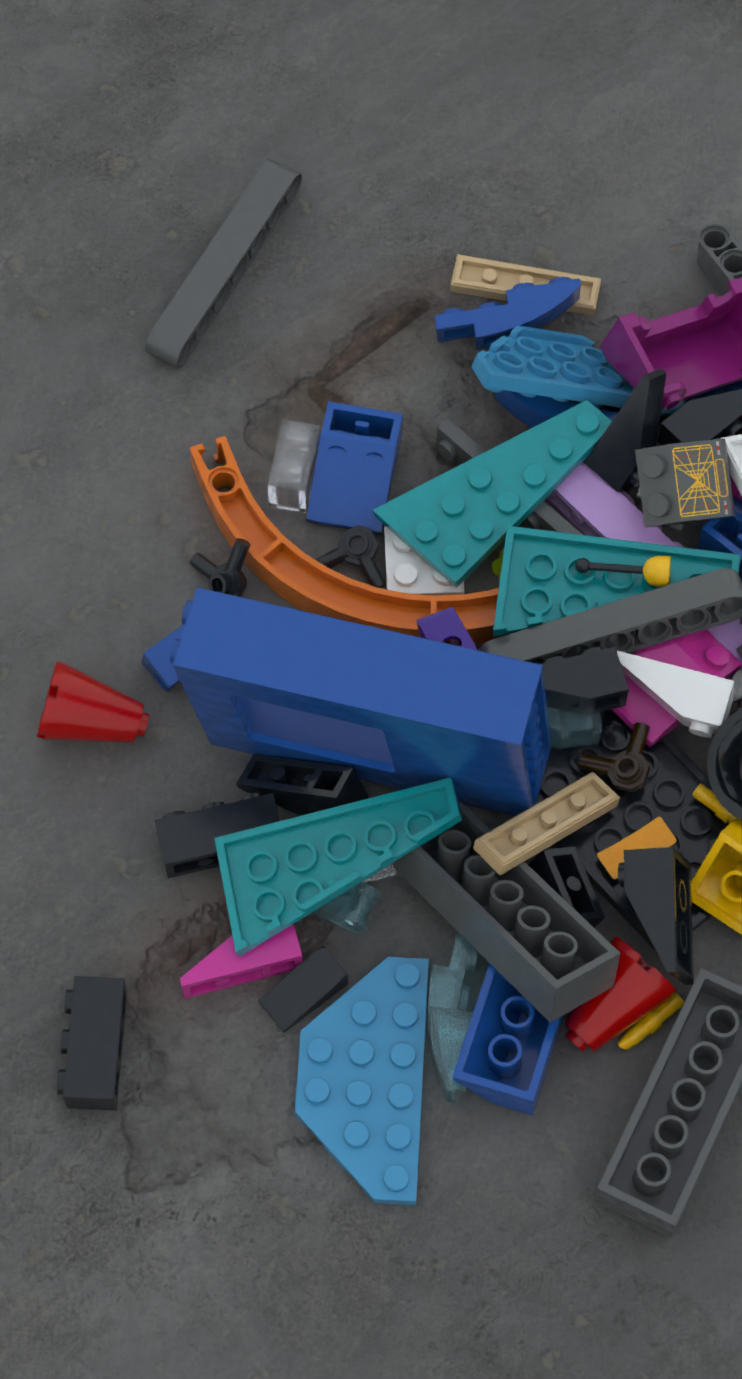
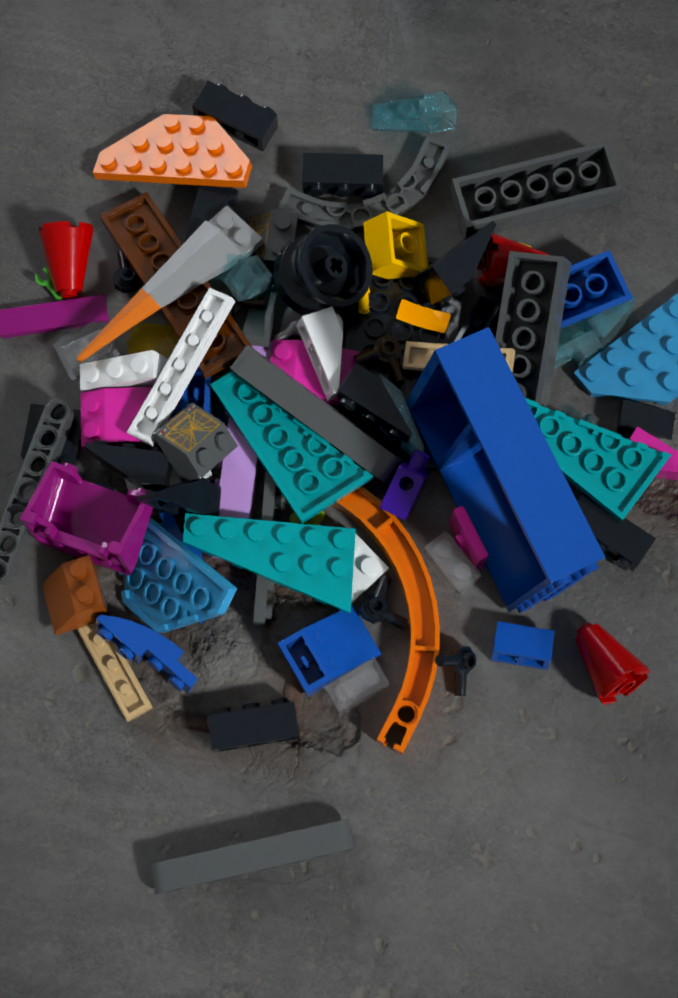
camera: 130 degrees left, 10 degrees up
(345, 351) = (253, 725): none -> black brick
(621, 289) = (74, 595): none -> dark orange slope
(655, 570) = (263, 414): hinge -> none

